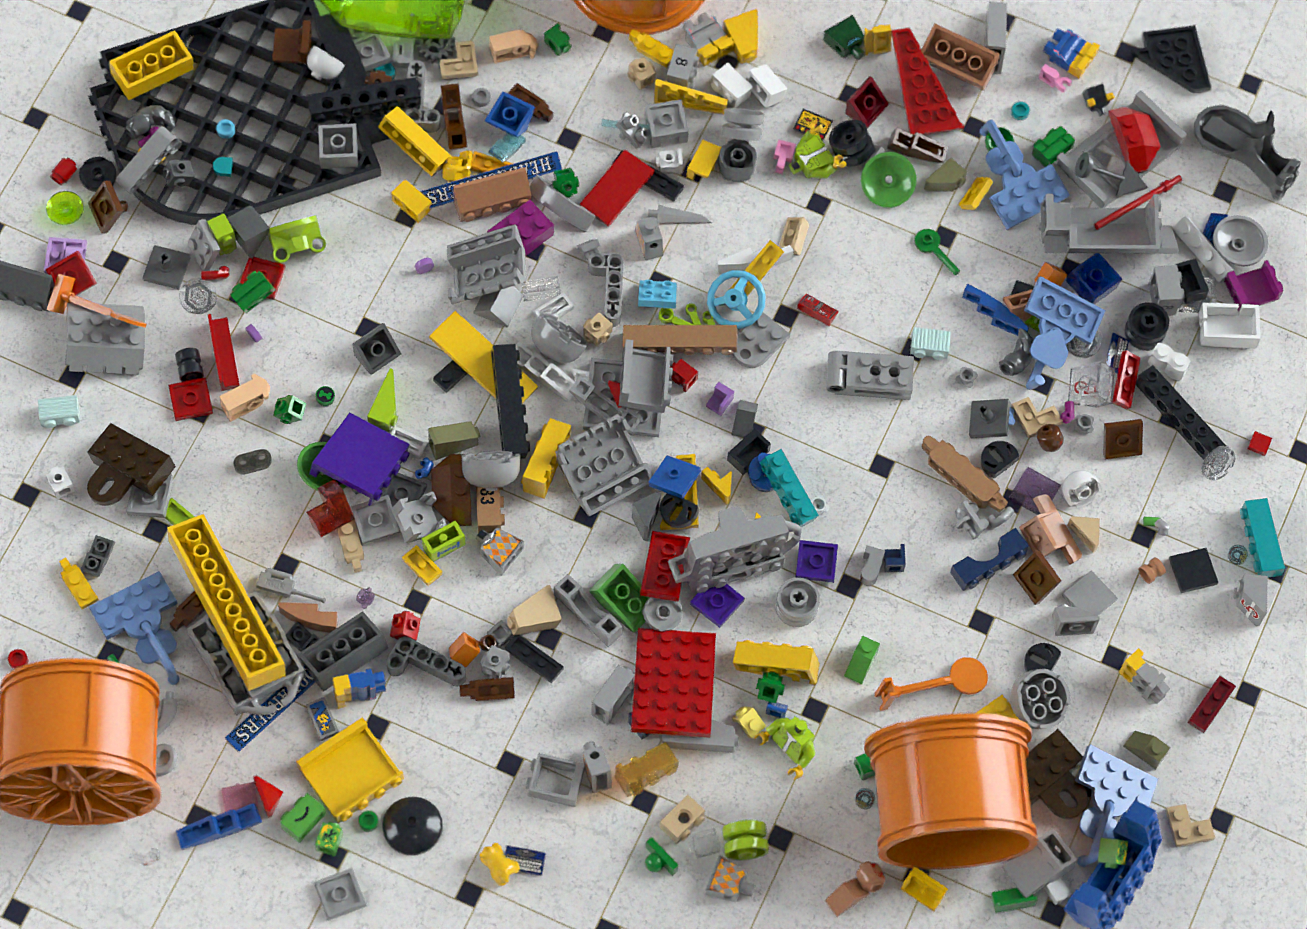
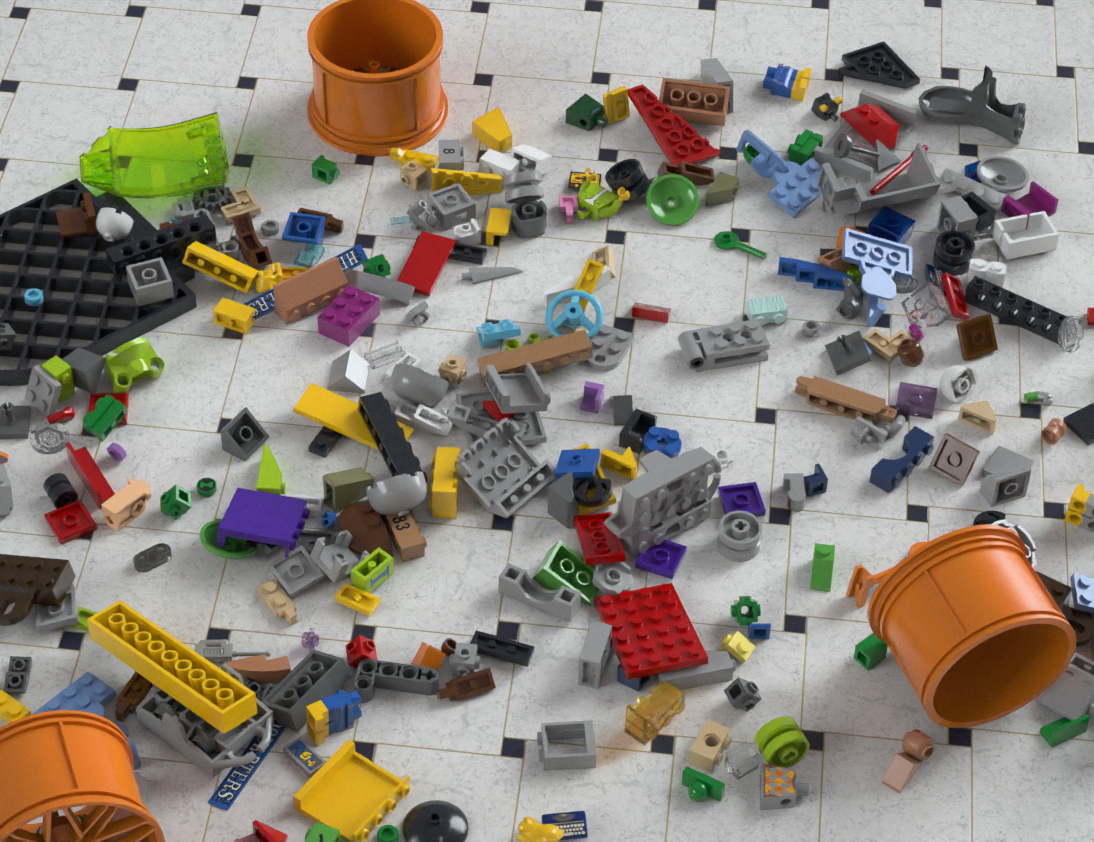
camera: 15 degrees left, 20 degrees down
(223, 166) = (41, 325): teal tile -> none
(333, 511) = (252, 571): clear red brick -> none
(371, 49) = (152, 211): light grey plate -> none
(424, 265) = (266, 361): medium lavender tile -> none
(486, 264) = (327, 339): light grey slope -> none
(499, 548) = (430, 566): light grey torso -> none
(501, 633) = (460, 635): light grey tile -> none
(512, 45) = (283, 183): light nougat piece -> none
(535, 614) = (489, 608): tan slope -> none
(596, 767) = (607, 723): light grey torso -> none
(611, 290) = (447, 322): light grey beam -> none
(648, 233) = (472, 290): light grey torso -> none
(684, 374) = (553, 385): red brick -> none
(708, 39) = (468, 138): hips -> none
(732, 776) = (743, 694): none -> dark grey brick
(782, 659) = (758, 581): yellow wedge -> none
(789, 488) = (682, 438): teal brick -> none
(793, 739) = (789, 647): lime torso -> none
(865, 798) = (879, 683): clear light blue tile -> none
(866, 102) = (625, 148): dark red slope -> none
(924, 889) = (974, 742): yellow hinge -> none
(976, 193) = (754, 195): yellow plate -> none
(991, 465) = (876, 375): black piece -> none
(1020, 110) = (763, 132): teal tile -> none
(1048, 531) = (941, 421): nougat plate -> none
(1051, 77) = (780, 102): bright pink plate -> none
(1084, 419) = (934, 338): light grey plate -> none

